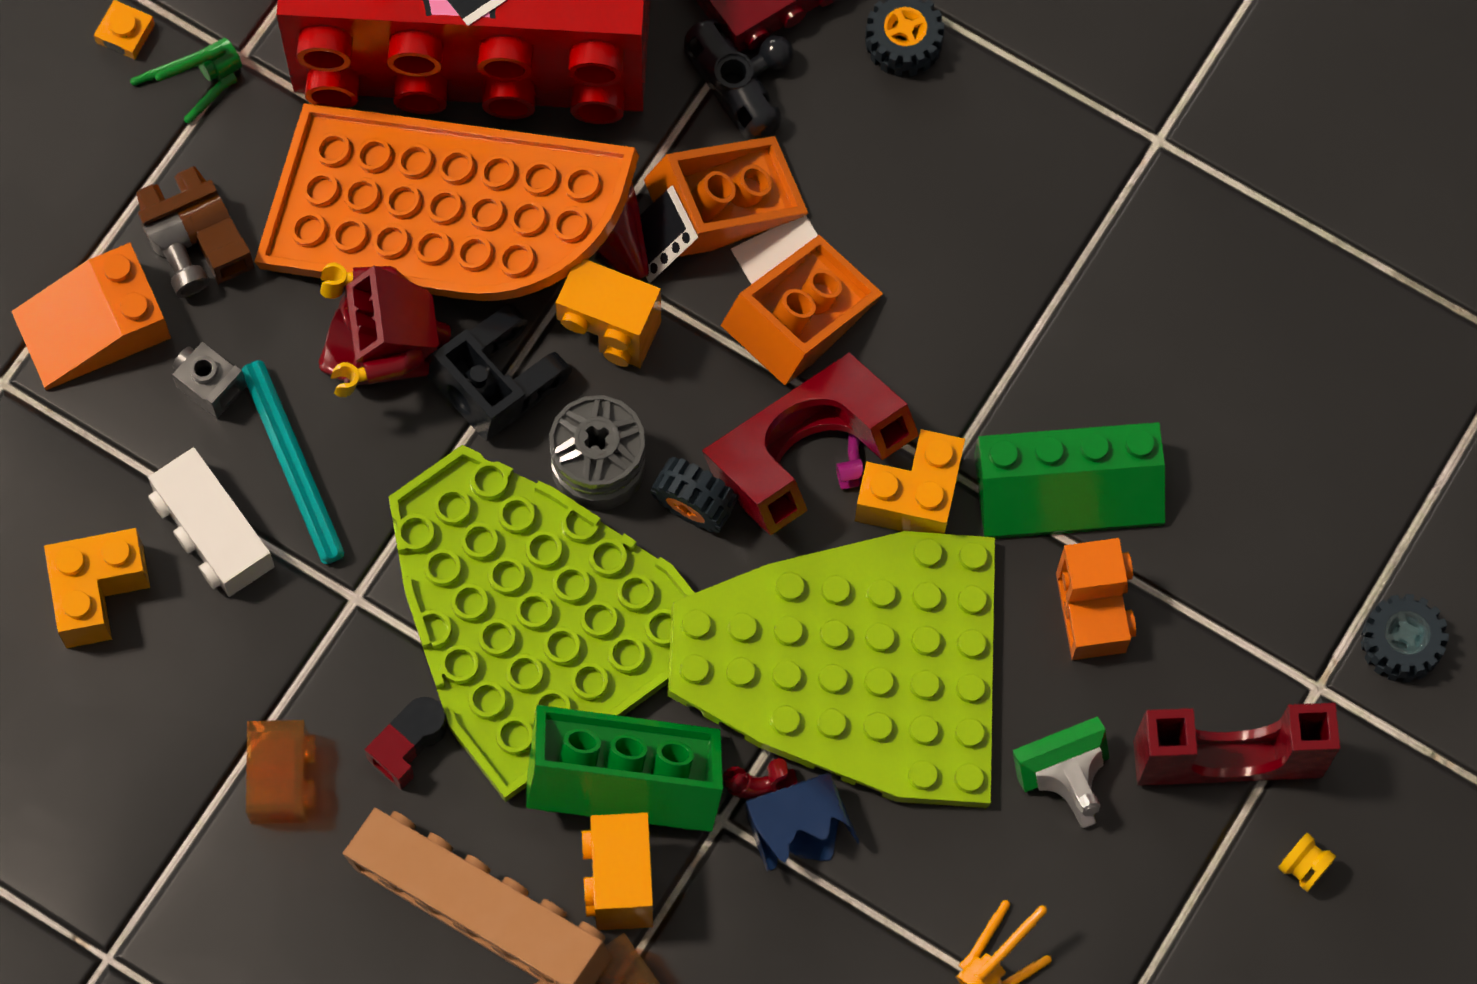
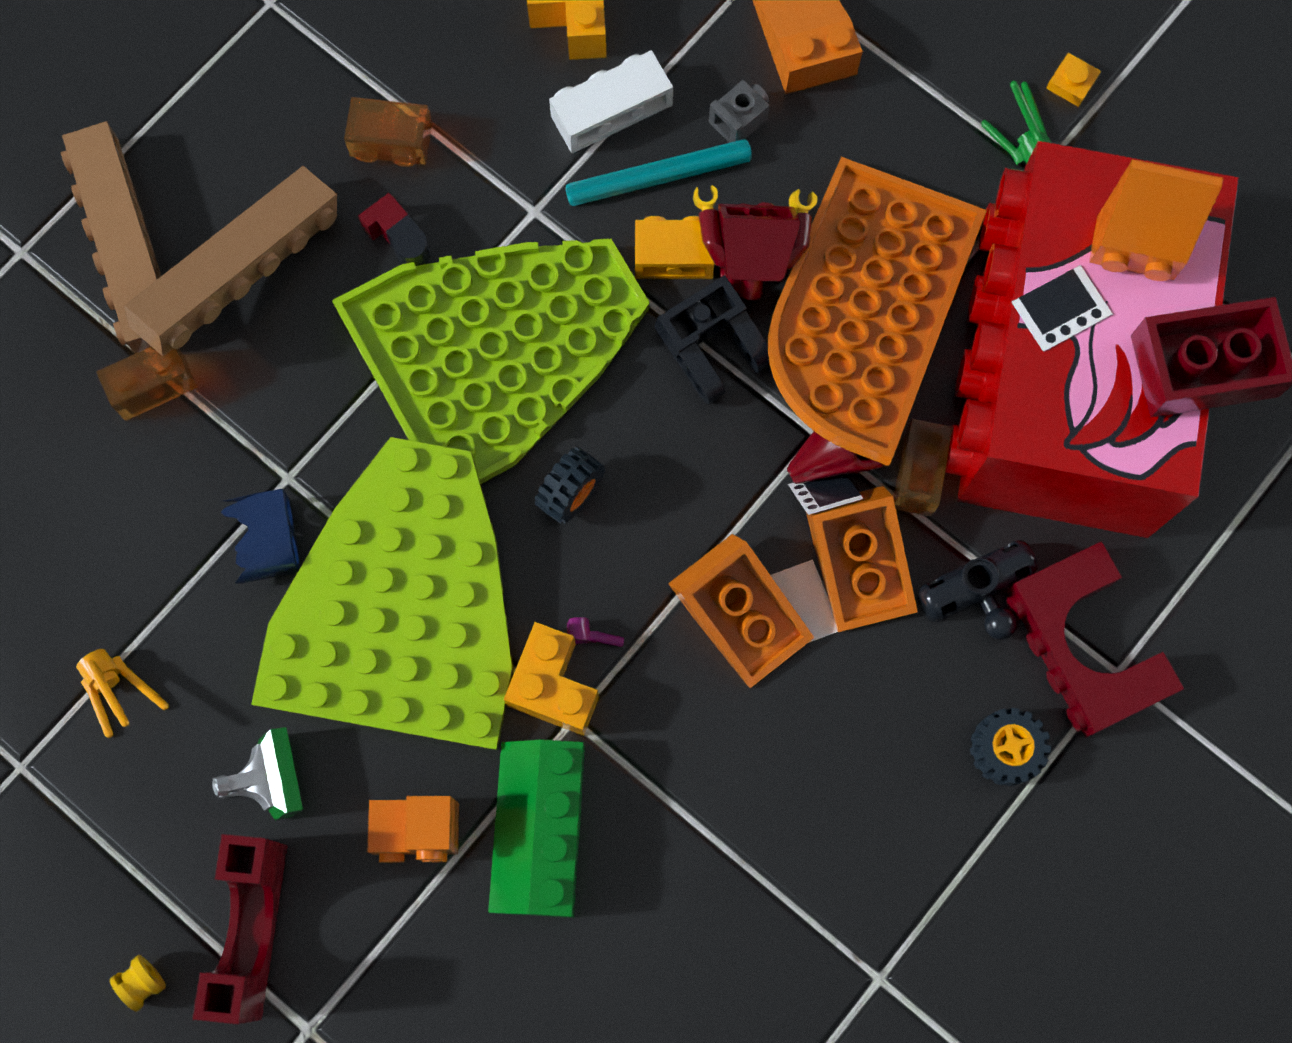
camera: 100 degrees right, 5 degrees up
(190, 219) = (886, 113): reddish brown hips -> none
(390, 429) = (671, 249): none -> light orange brick
(593, 475) = (615, 429): dark grey wheel -> none
(612, 306) = (746, 437): light orange brick -> none
(621, 877) = (234, 374): light orange brick -> none
(624, 766) = (335, 394): green slope -> none
(625, 127) = (922, 467): none -> clear orange brick
(748, 786) = (309, 501): dark red arm -> none
(837, 398) = (600, 539): dark red arch -> none

